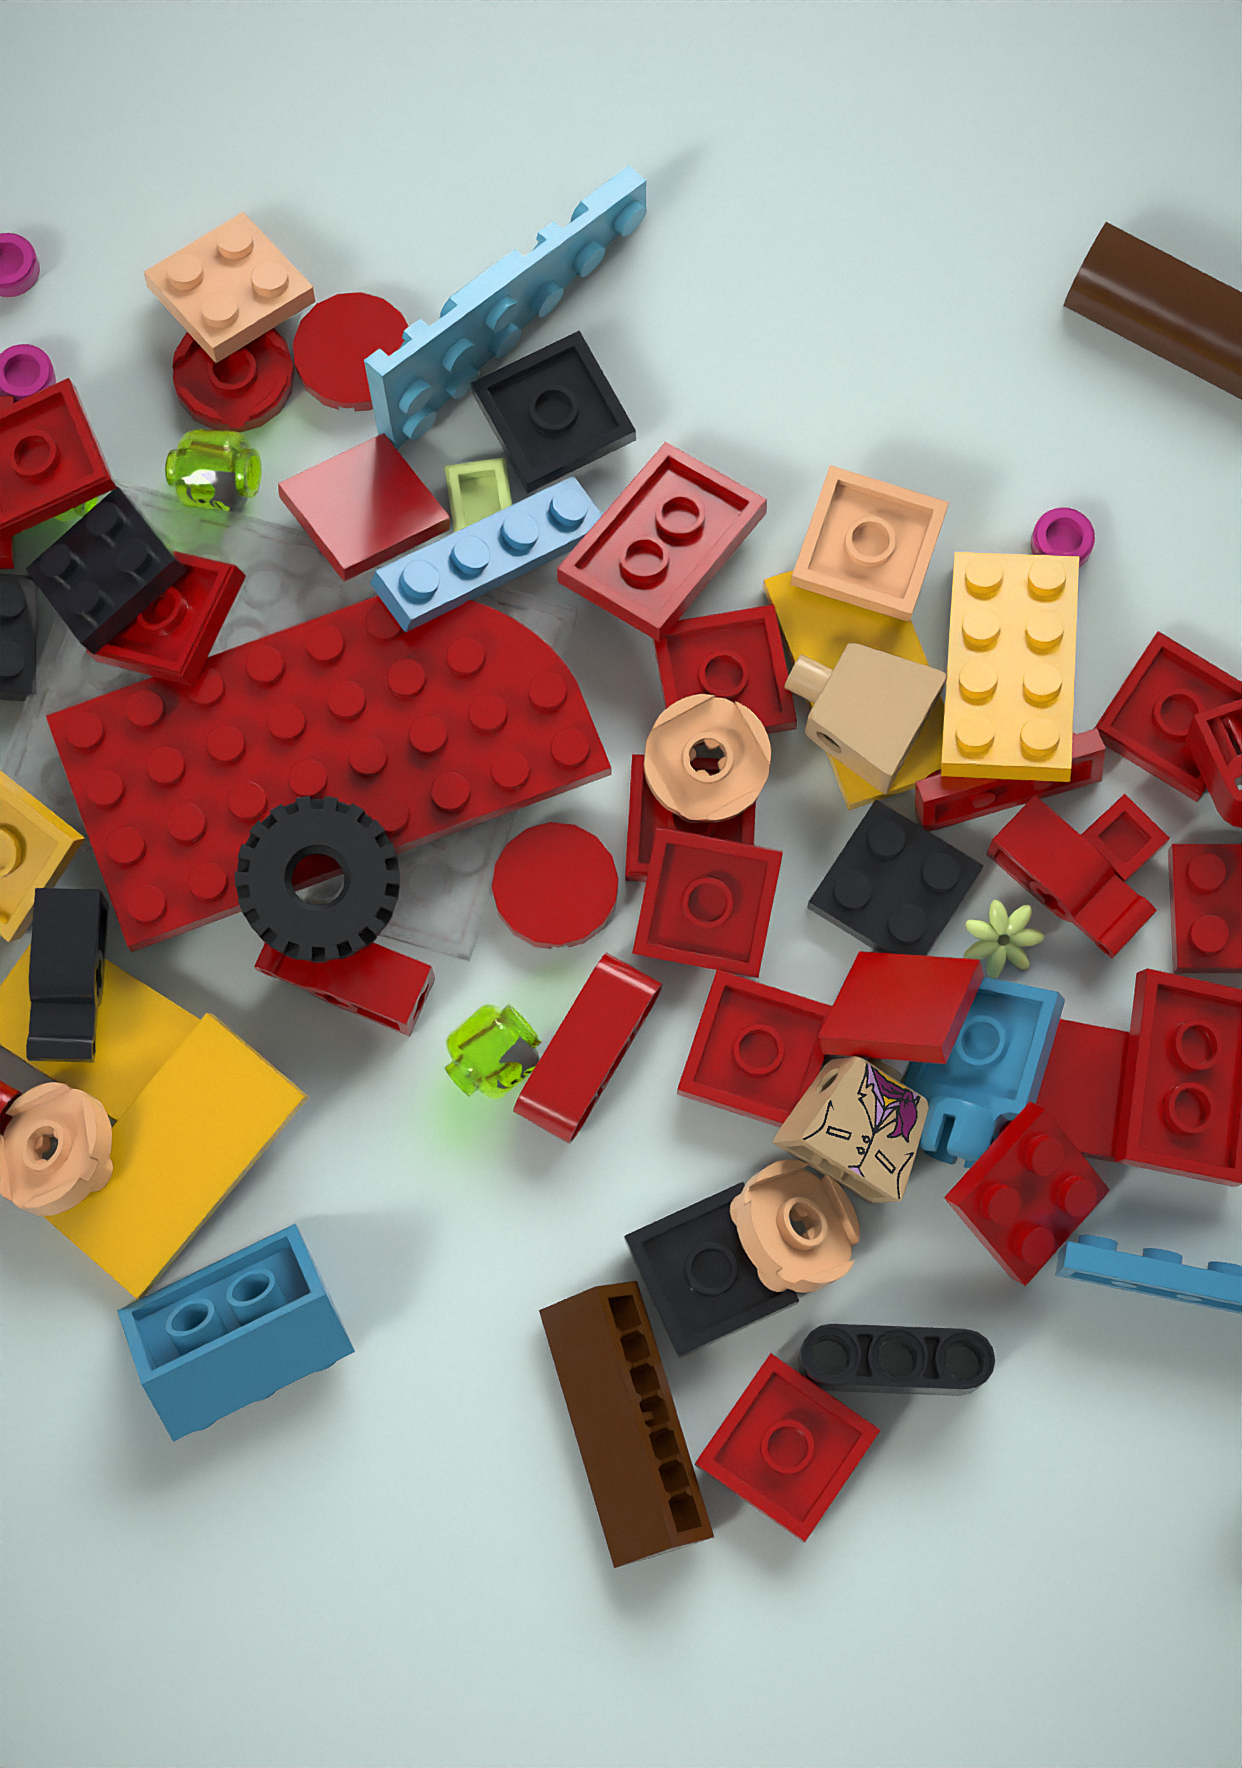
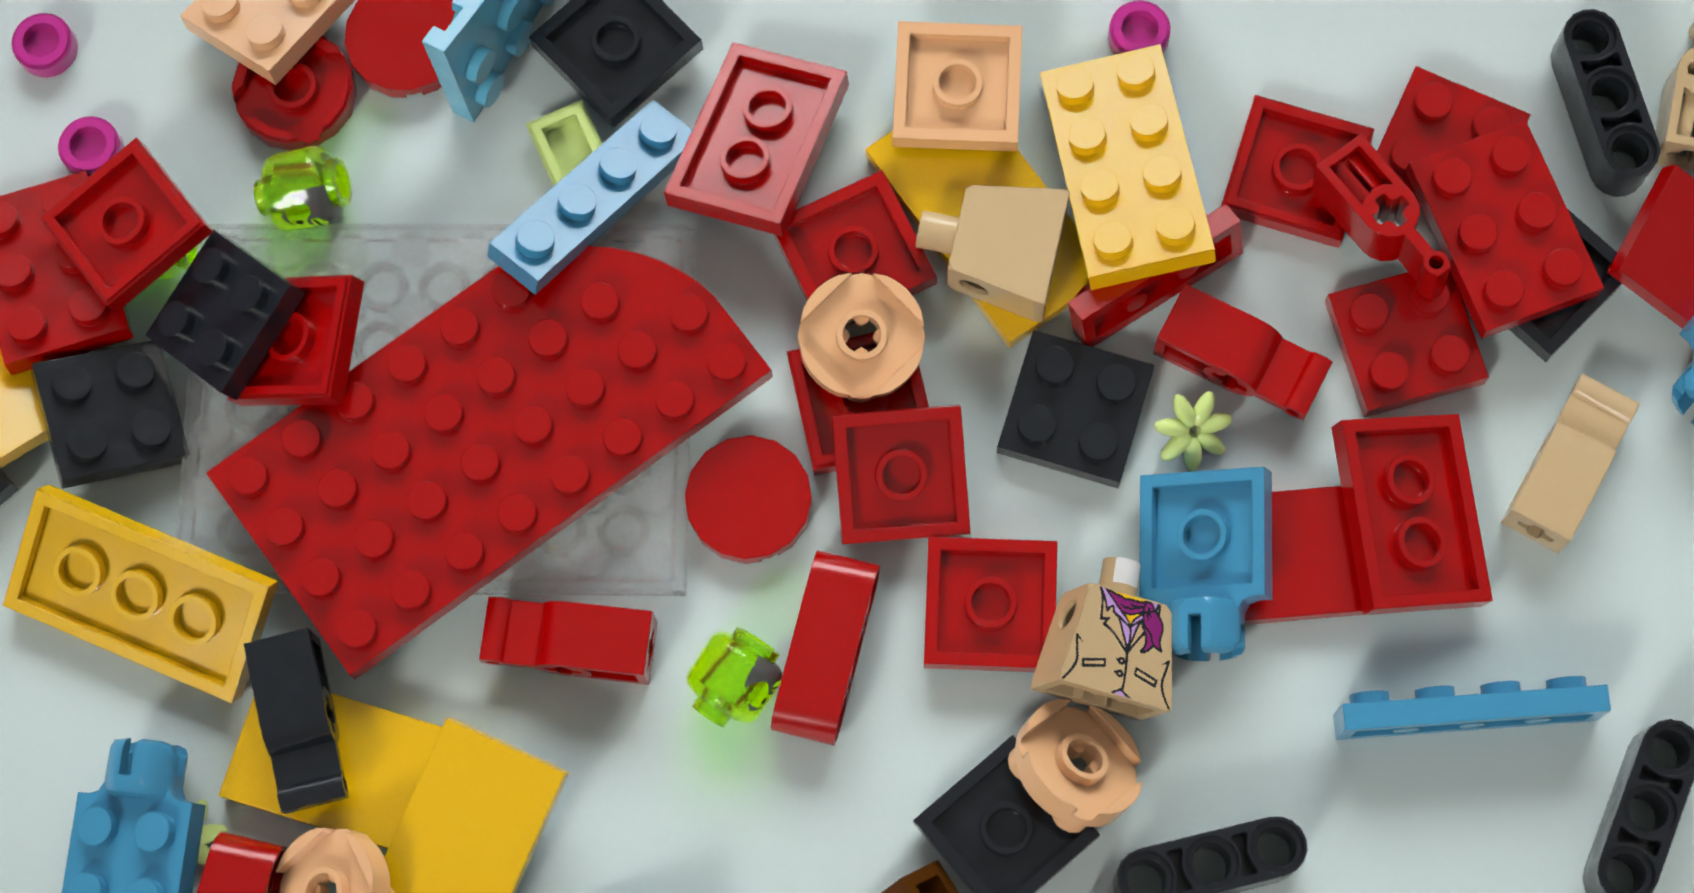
camera: 10 degrees left, 0 degrees up
(307, 829) = (510, 507): black tyre -> none
(363, 507) = (459, 184): tile -> none
(901, 1007) = (1117, 523): red tile -> none
(1027, 1193) = (1289, 669): red plate -> none
(1126, 837) = (1283, 300): red plate -> none

